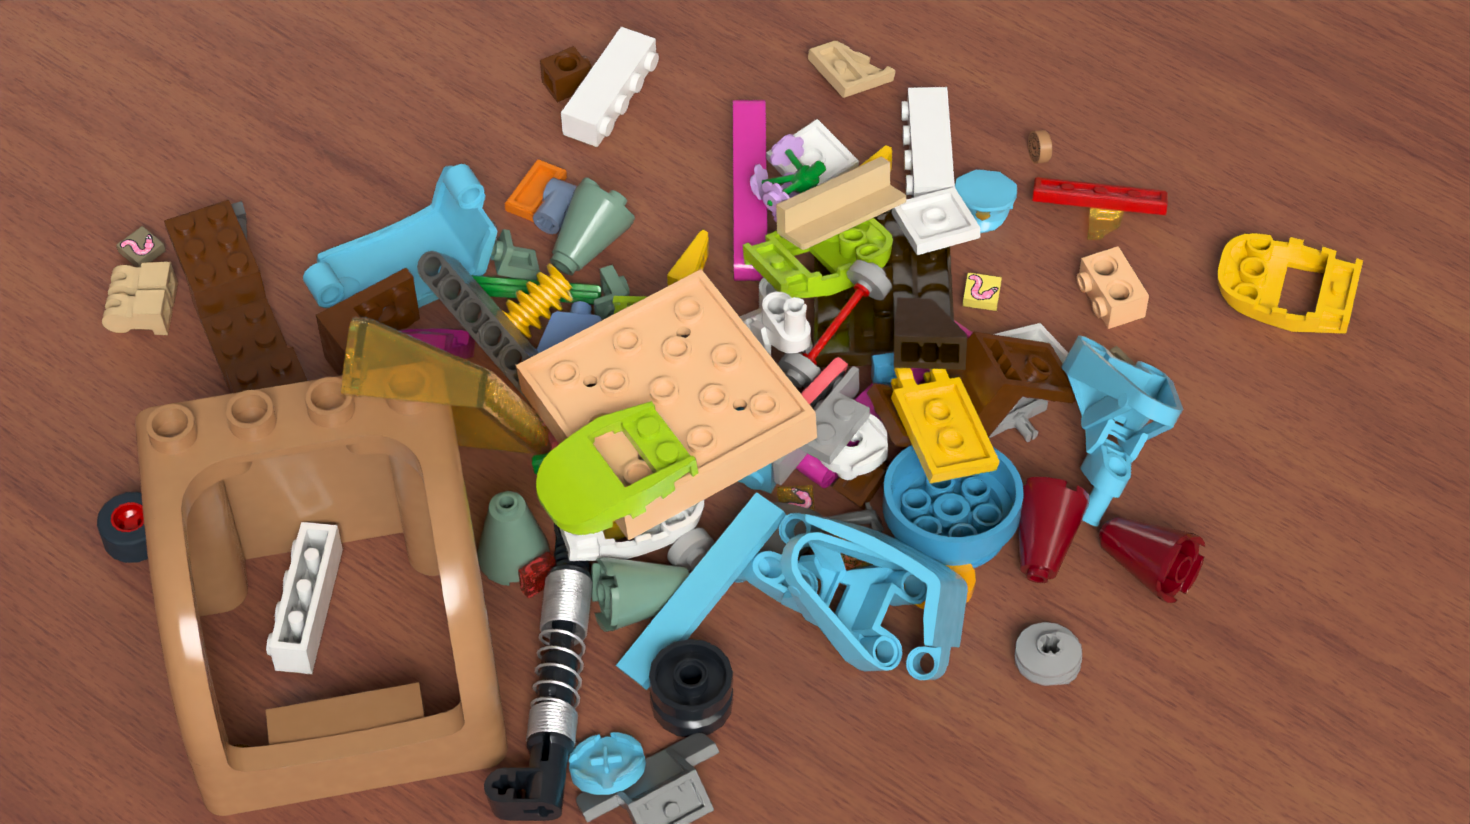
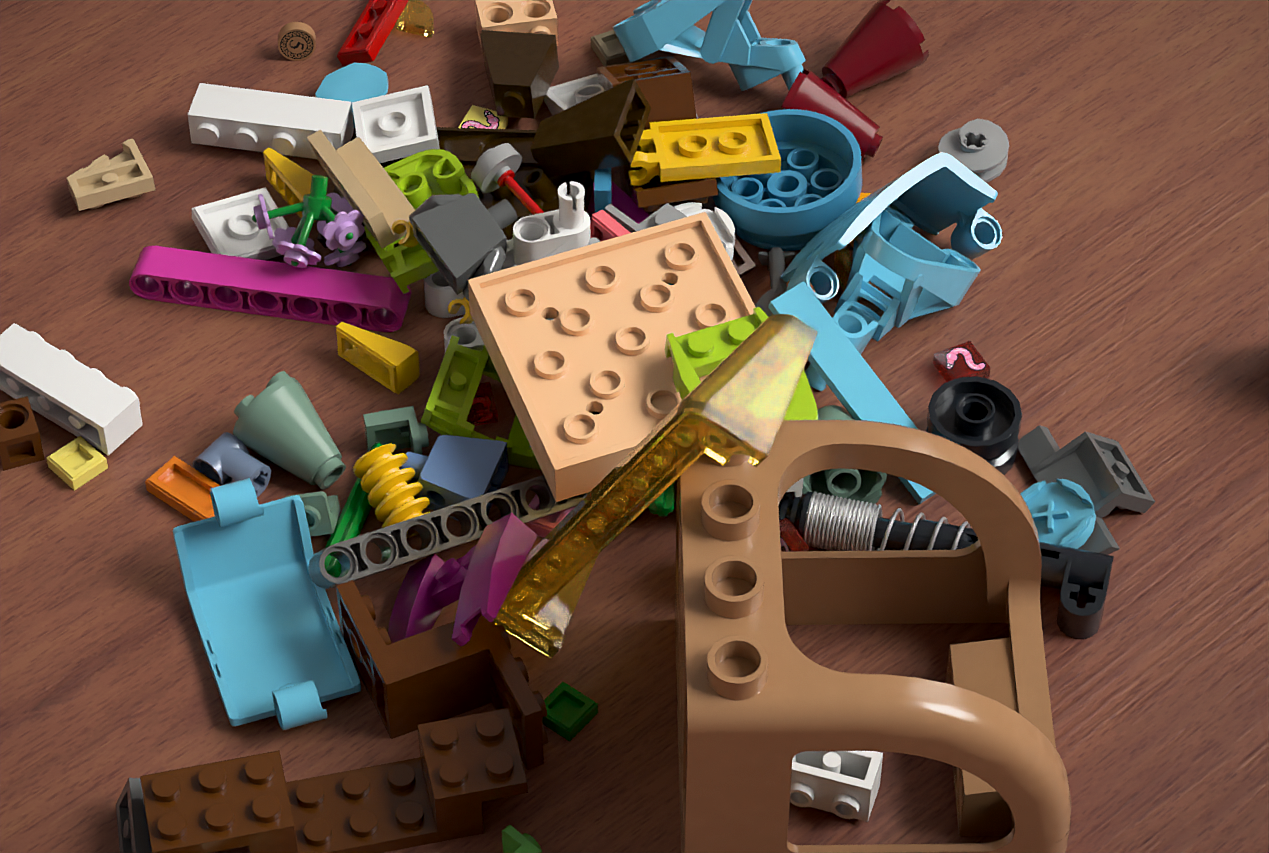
camera: 80 degrees left, 5 degrees down
(548, 119) = (77, 463): none -> light yellow tile
(761, 265) = (459, 239): none -> dark grey torso
(783, 680) = (961, 362): none -> clear red tile
(1038, 295) = (519, 70): none -> dark brown slope

